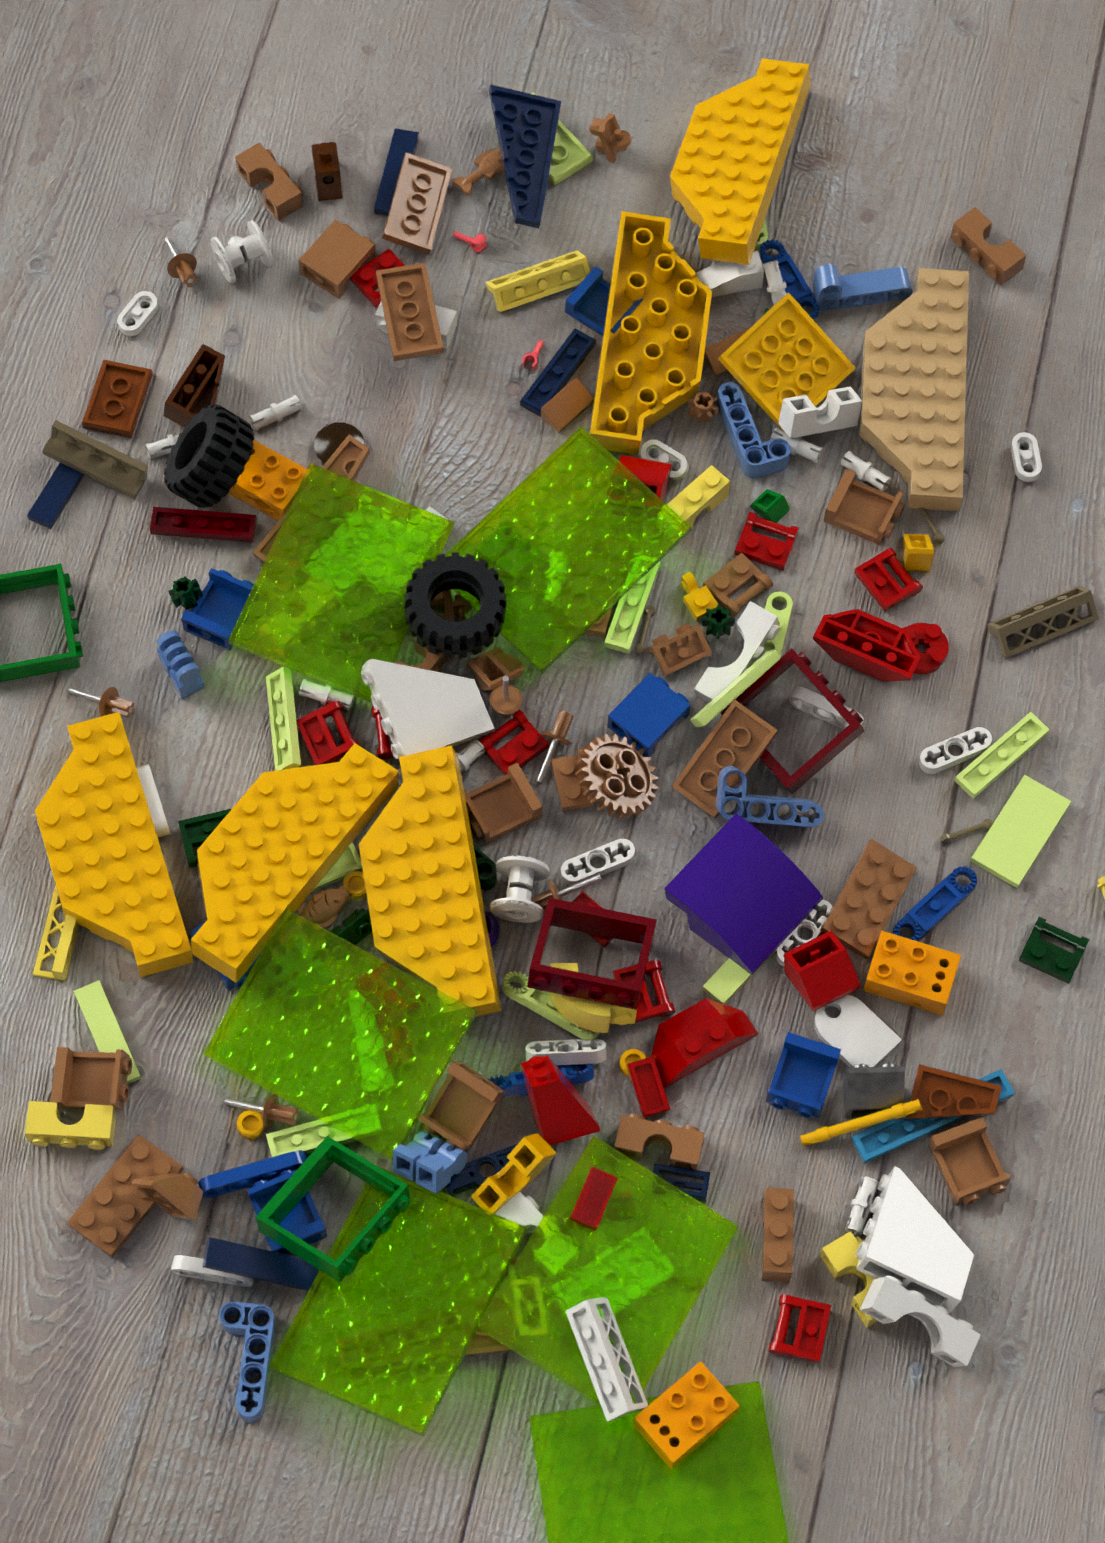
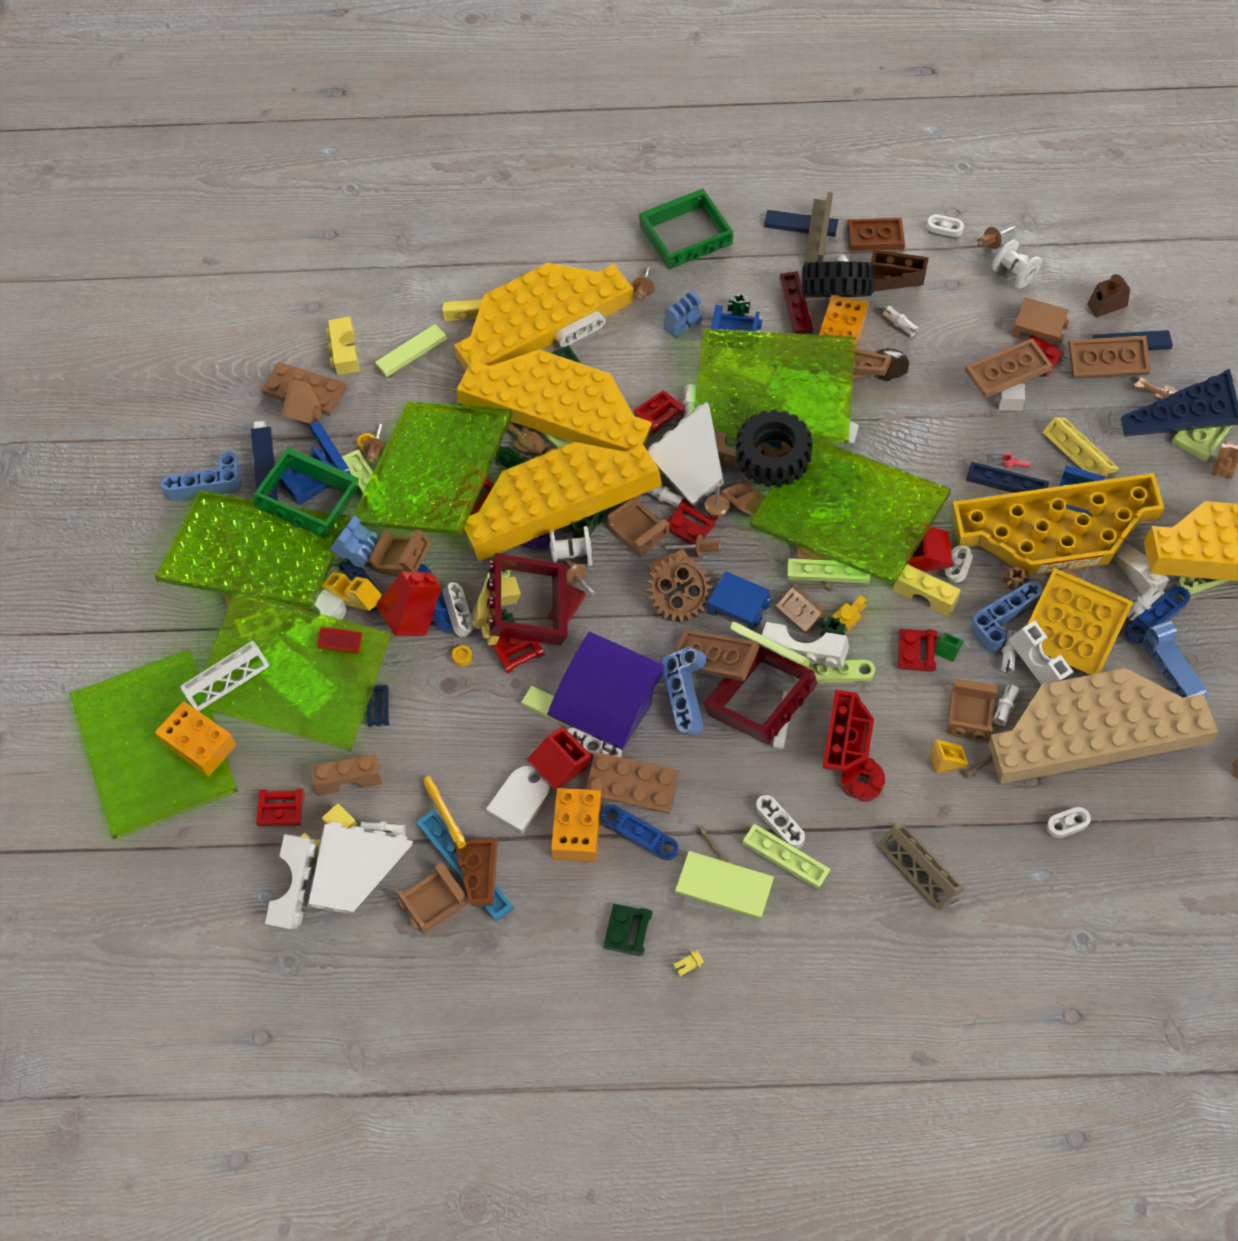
camera: 80 degrees right, 5 degrees down
(90, 1078) = (374, 345): medium nougat panel -> none
(260, 166) = (1078, 278): medium nougat arch -> none
(283, 719) = (654, 387): yellowish green plate -> none
(477, 243) = (1095, 403): coral hand -> none
(566, 405) = (976, 487): medium nougat slope -> none
(612, 847) = (613, 606): white beam -> none
(636, 1134) = (402, 700): medium nougat arch -> none
(648, 1087) = (444, 667): red tile -> none
(698, 1038) = (490, 692): red wedge -> none
(732, 579) = (875, 634): medium nougat plate -> none
(803, 1076) = (475, 768): blue panel -> none
(872, 1089) = (471, 813): flat silver slope -> none
(882, 584) = (907, 738): red plate -> none

